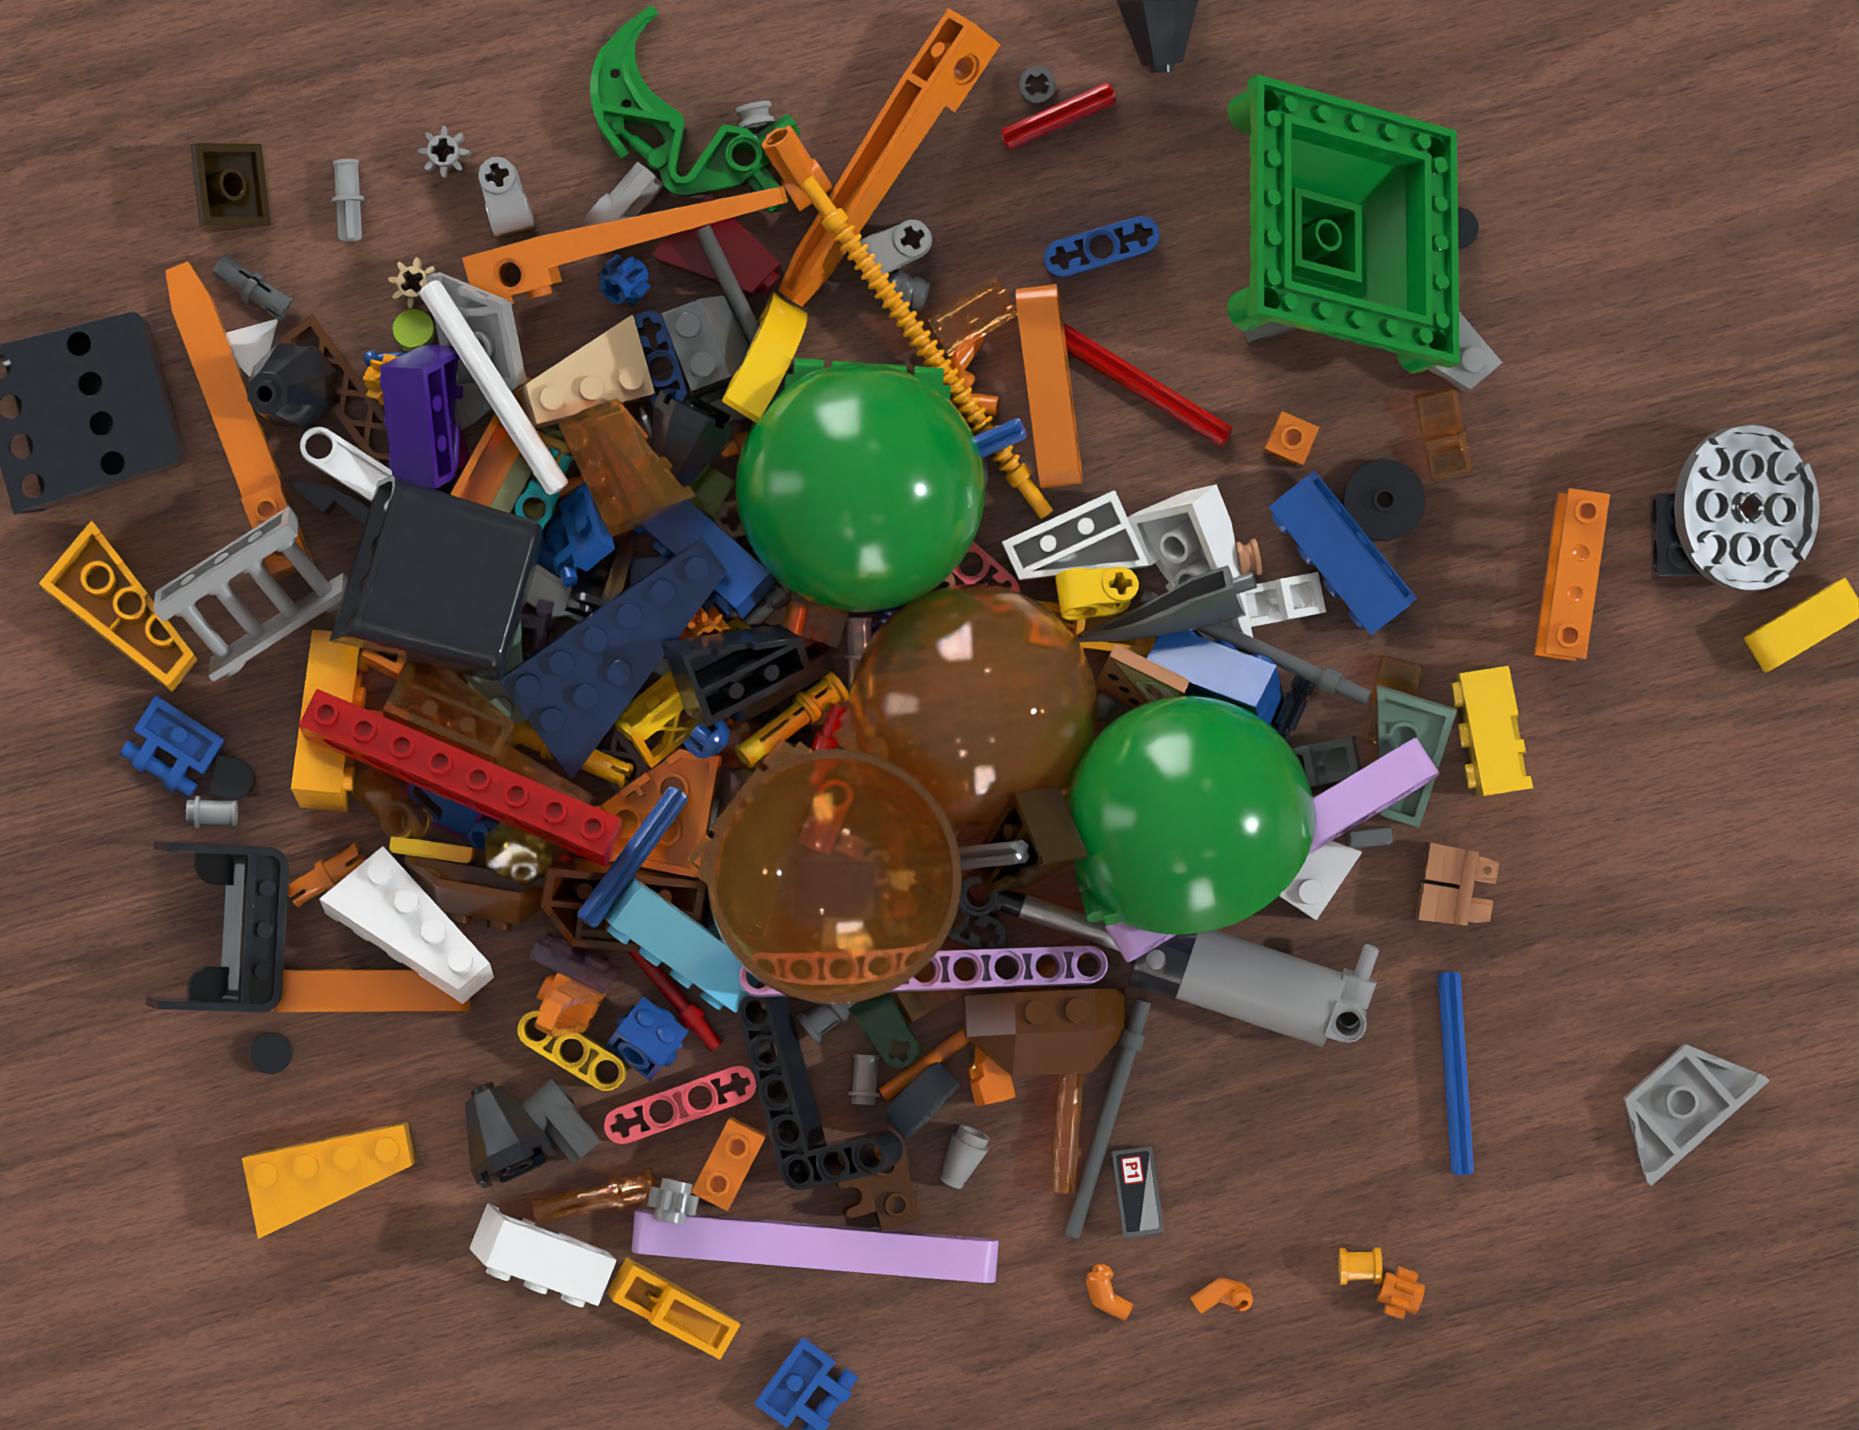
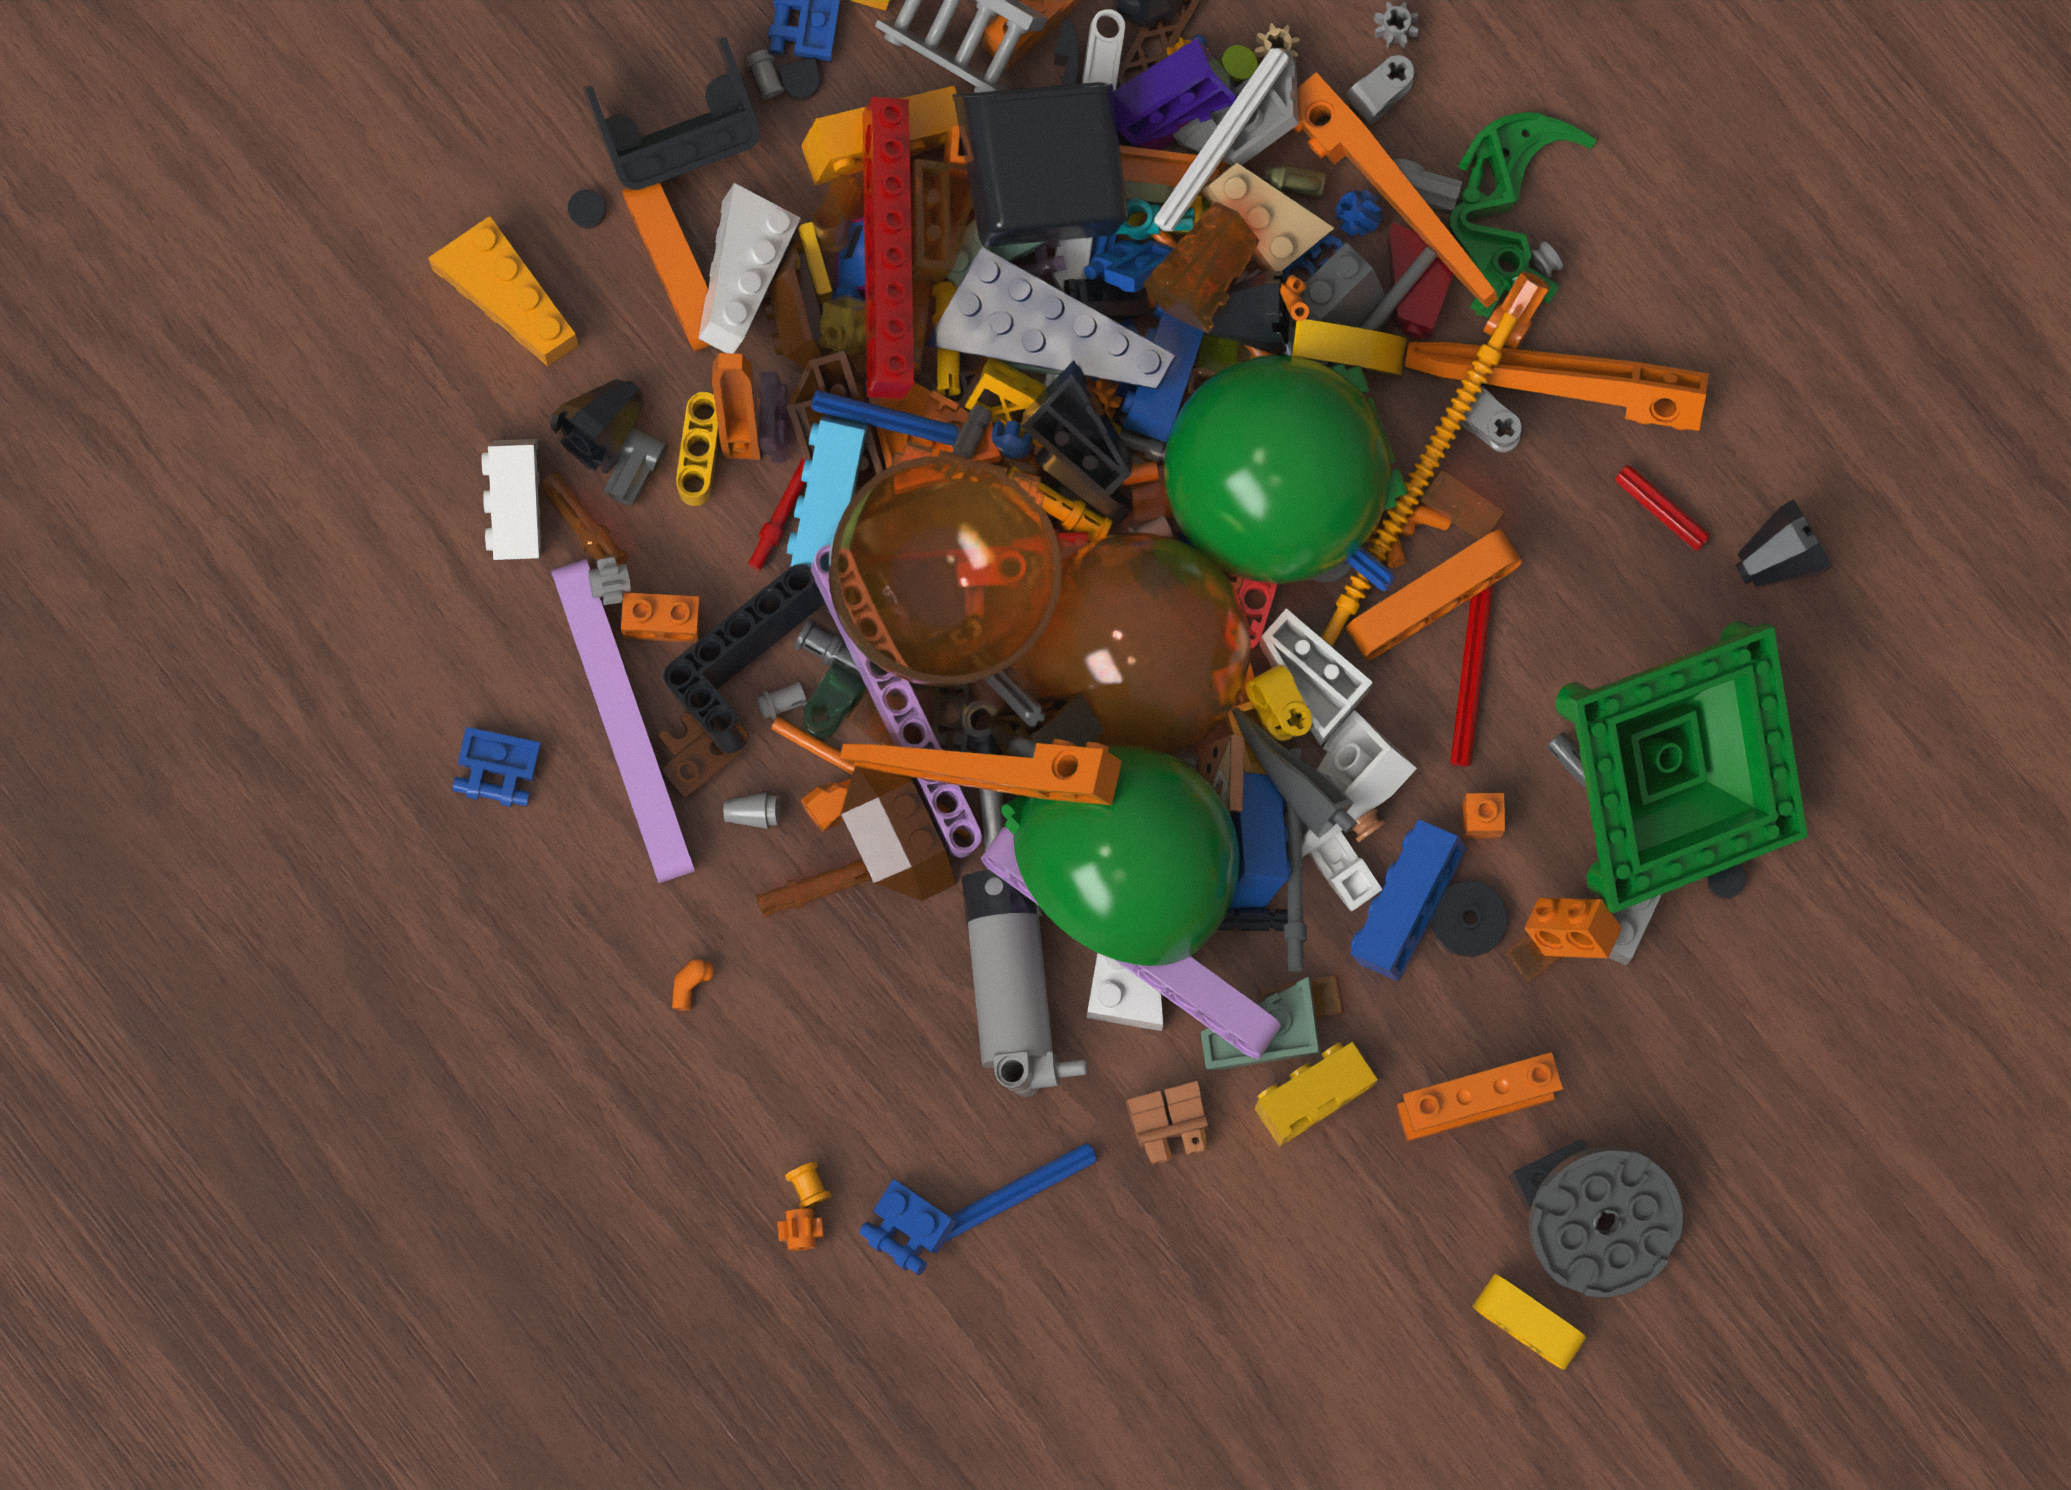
camera: 65 degrees right, 10 degrees down
(325, 875) = (753, 183): orange pin -> none
(560, 328) = (1296, 180): none -> olive plant
(647, 1038) = (736, 503): blue head -> none
(672, 1308) = (517, 626): light orange slope -> none
(682, 1109) = (695, 556): coral beam -> none
(690, 781) = (972, 431): none -> dark grey axle
(700, 394) = (1293, 300): none -> orange arm
(914, 290) = (1461, 449): dark grey arm -> none
(921, 1100) = (785, 750): black wheel -> none
(1036, 72) = (1690, 474): dark grey bush -> none
(1088, 871) = (1043, 777): none -> orange piece
(1130, 1042) = (913, 908): dark grey bar -> none
(1133, 247) = (1545, 575): blue beam -> none
(1137, 1192) = (787, 970): slope -> none
(1223, 1291) = (734, 1080): orange arm -> none
(1329, 760) = (1222, 959): dark grey slope -> none
(1368, 837) = (1178, 1025): dark grey tile -> none
(1438, 1176) = (913, 1216): none -> blue plate
(1449, 406) = (1573, 927): none -> orange brick
(1684, 1105) = (1071, 1403): light grey wing -> none

